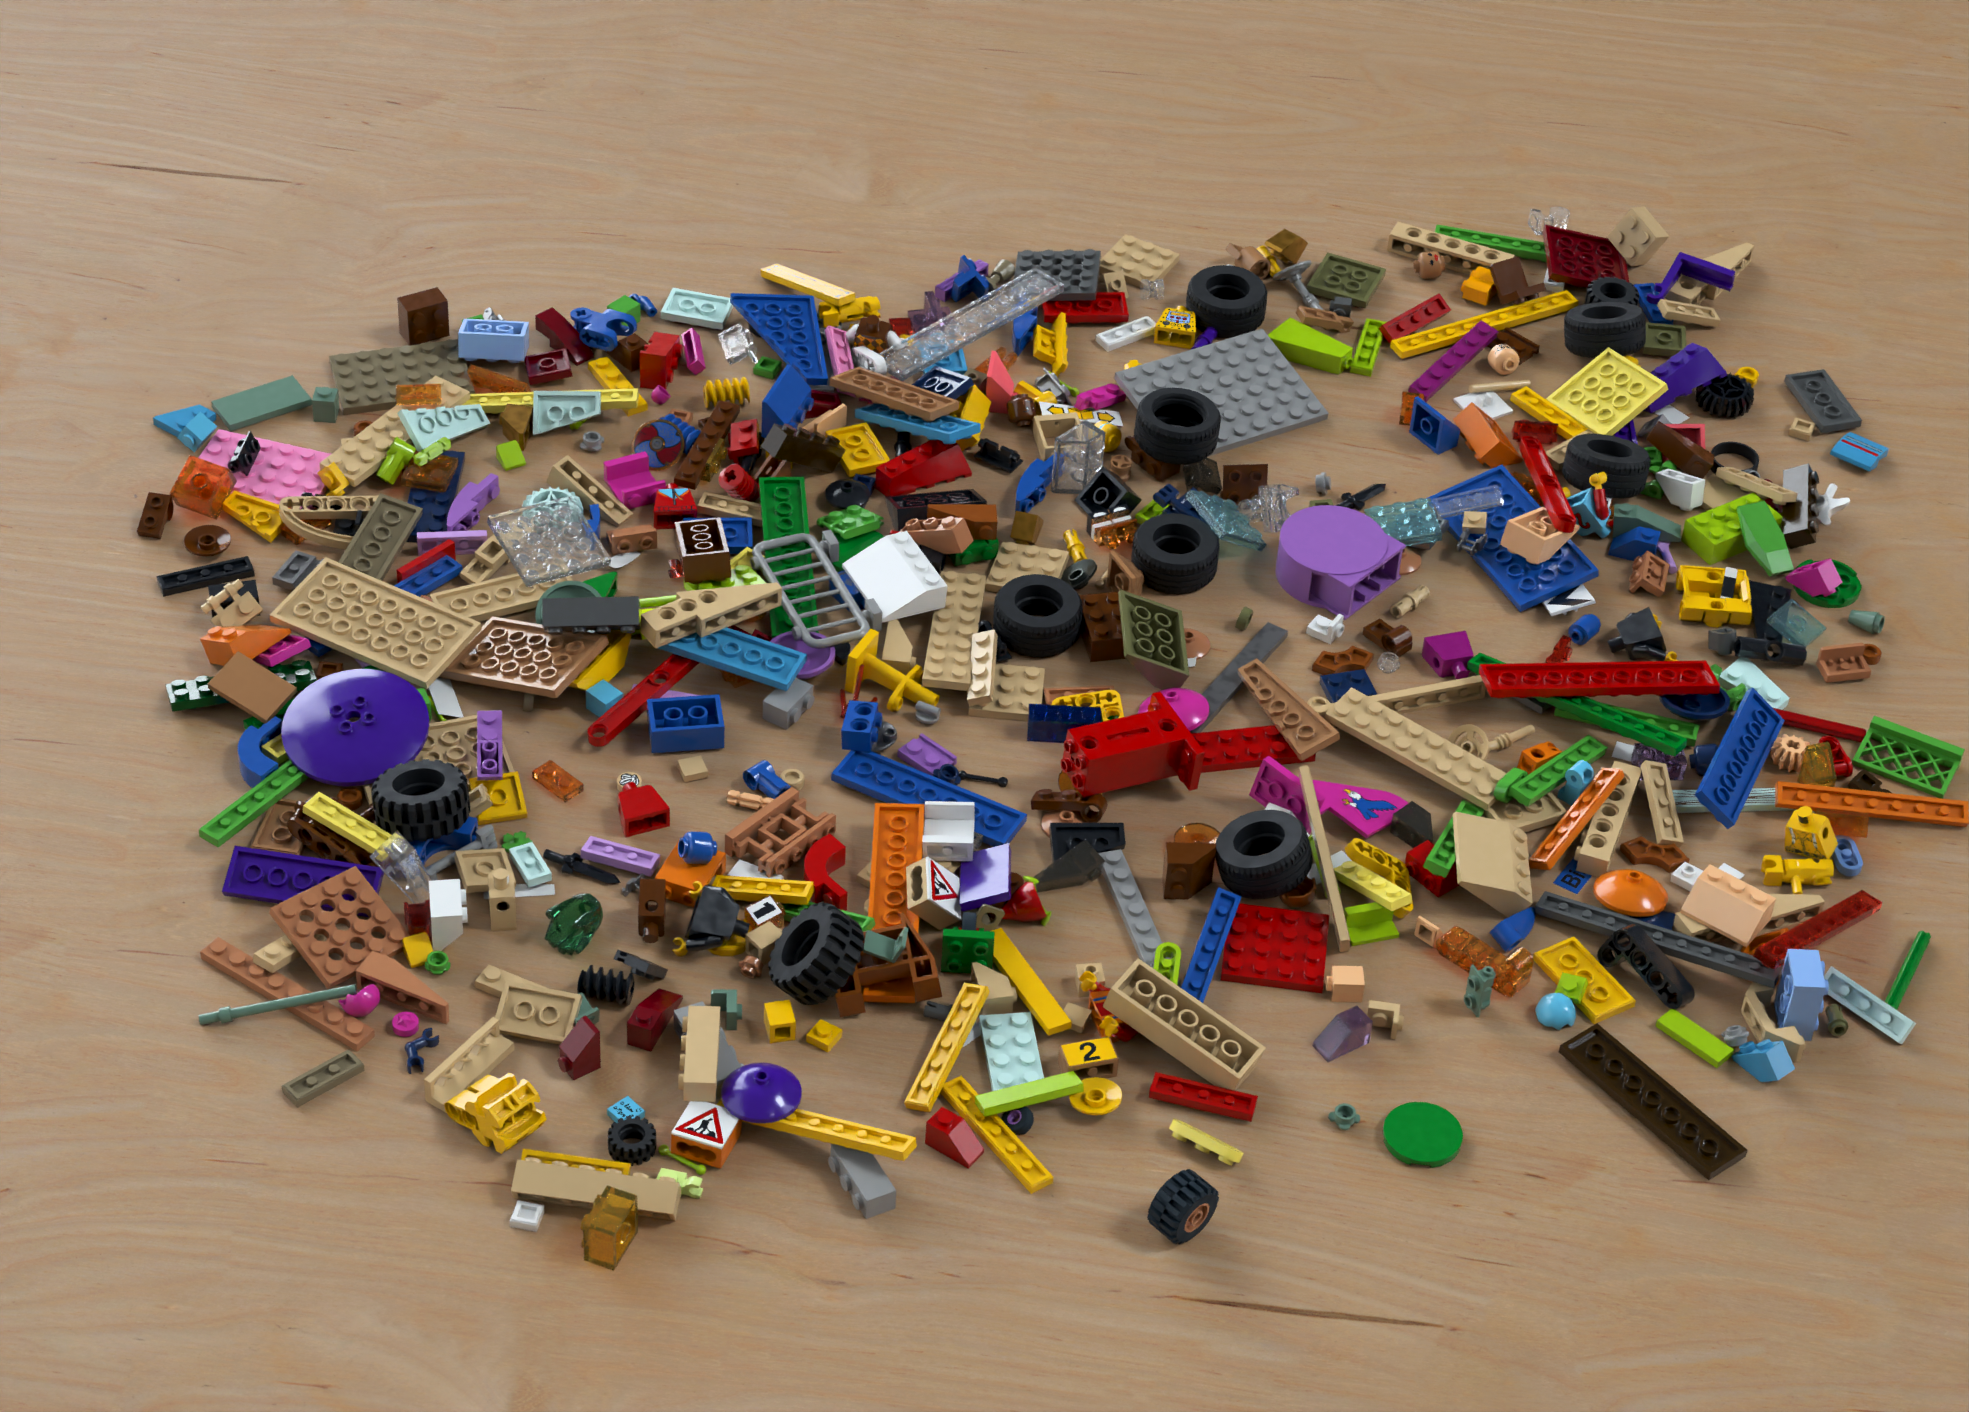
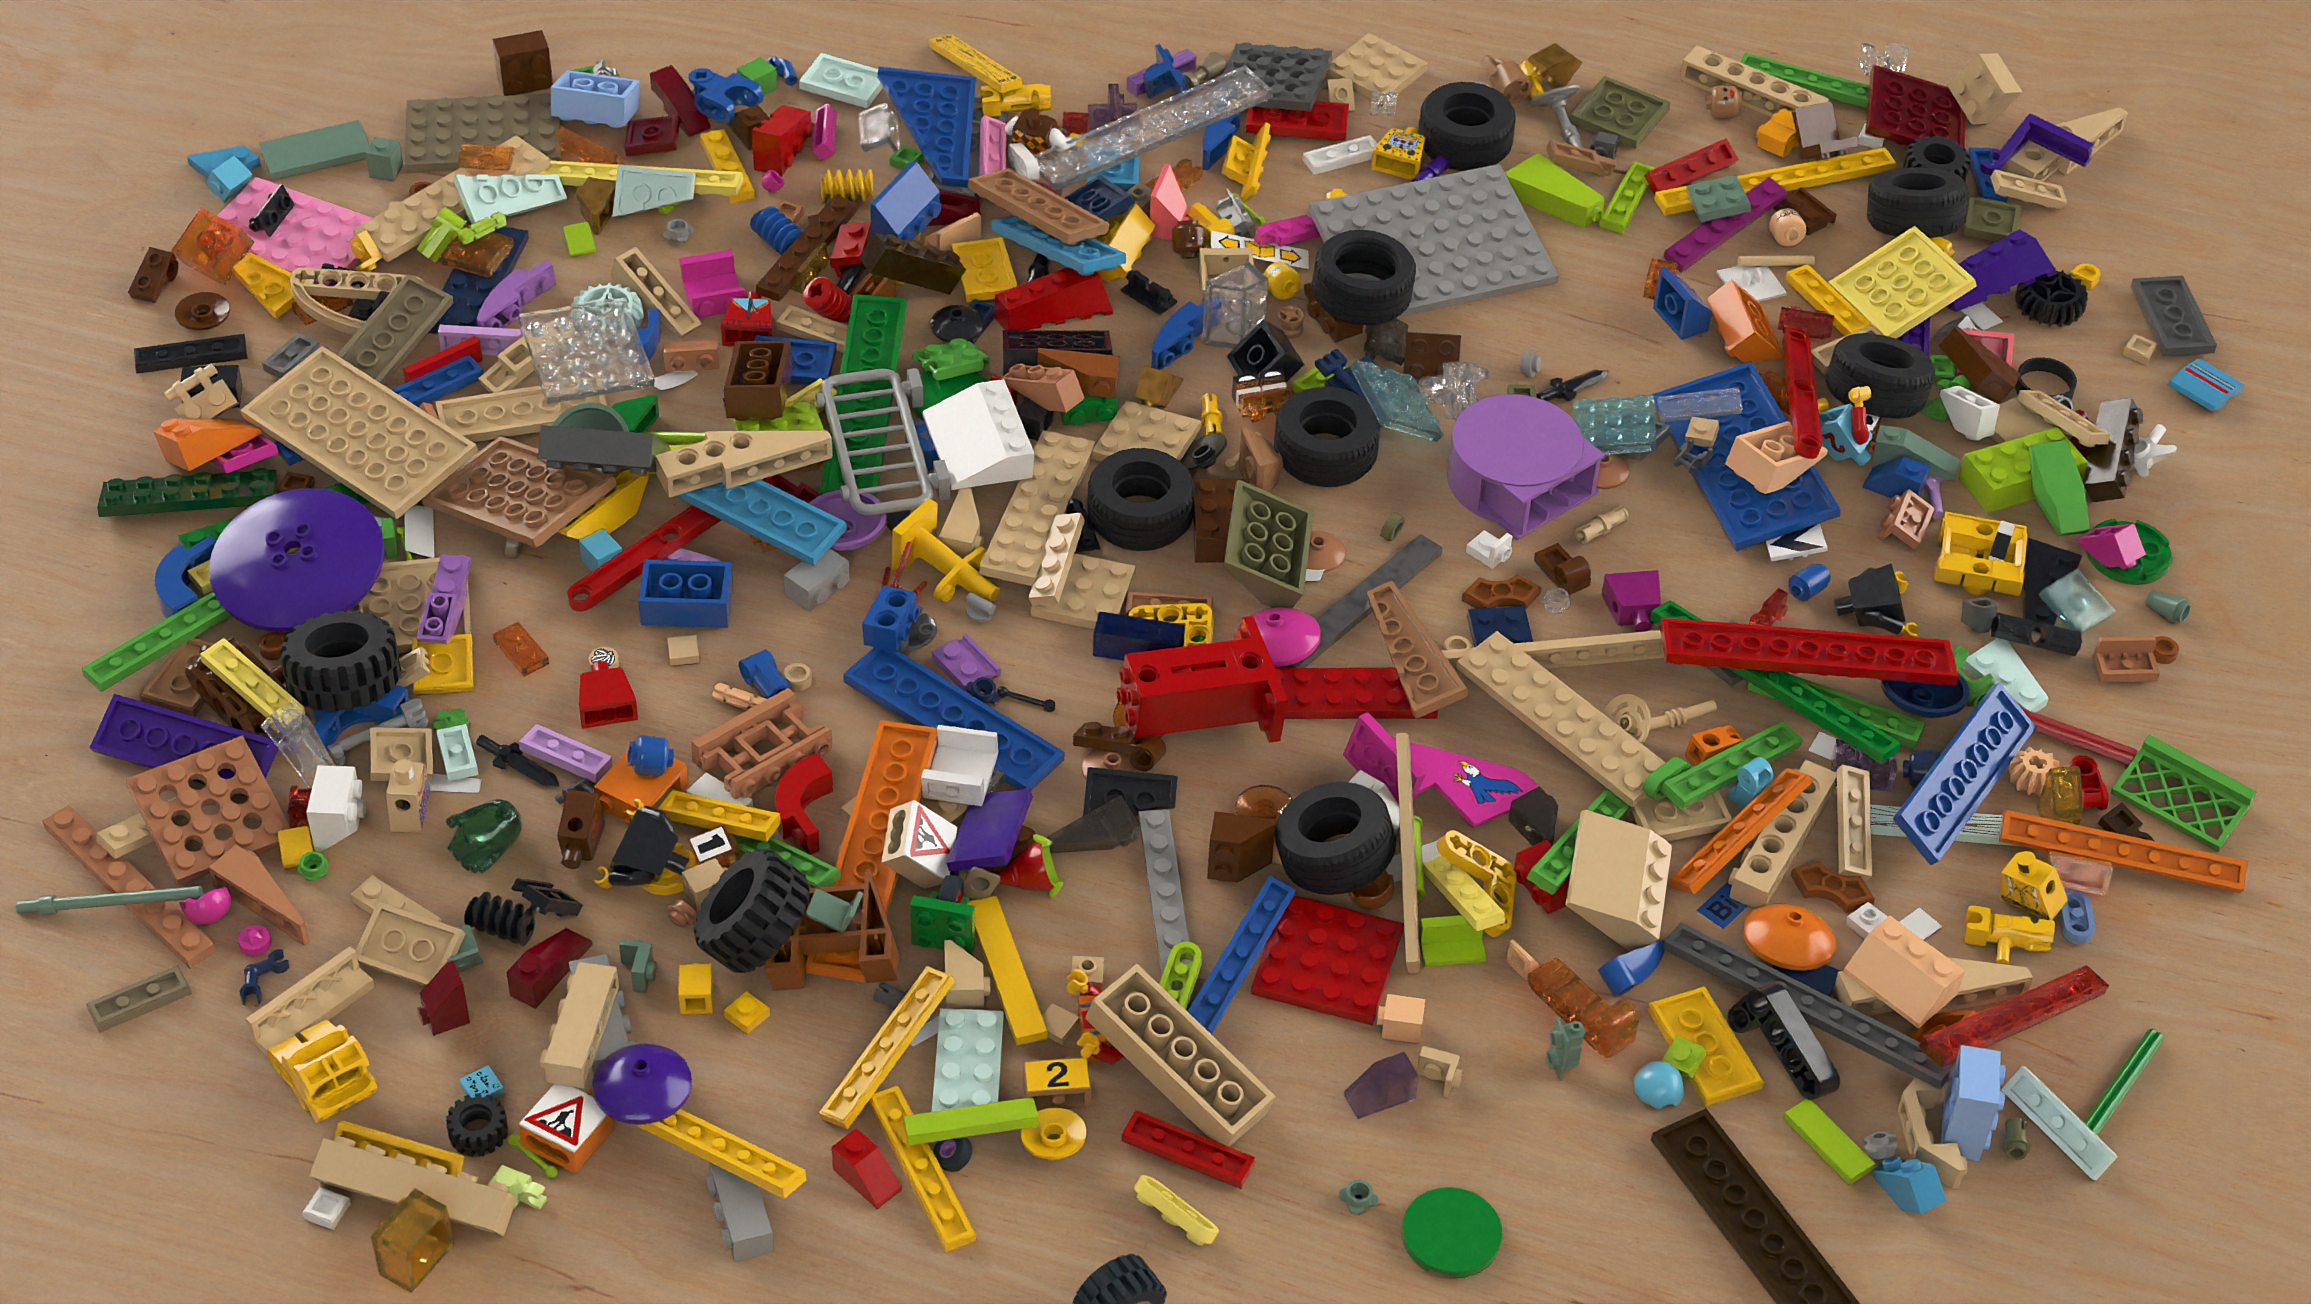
camera: 10 degrees right, 5 degrees up
(252, 687) = (192, 498): medium nougat tile -> none
(661, 441) = (752, 240): shield -> none
(1444, 340) = (1718, 198): none -> sand green plate

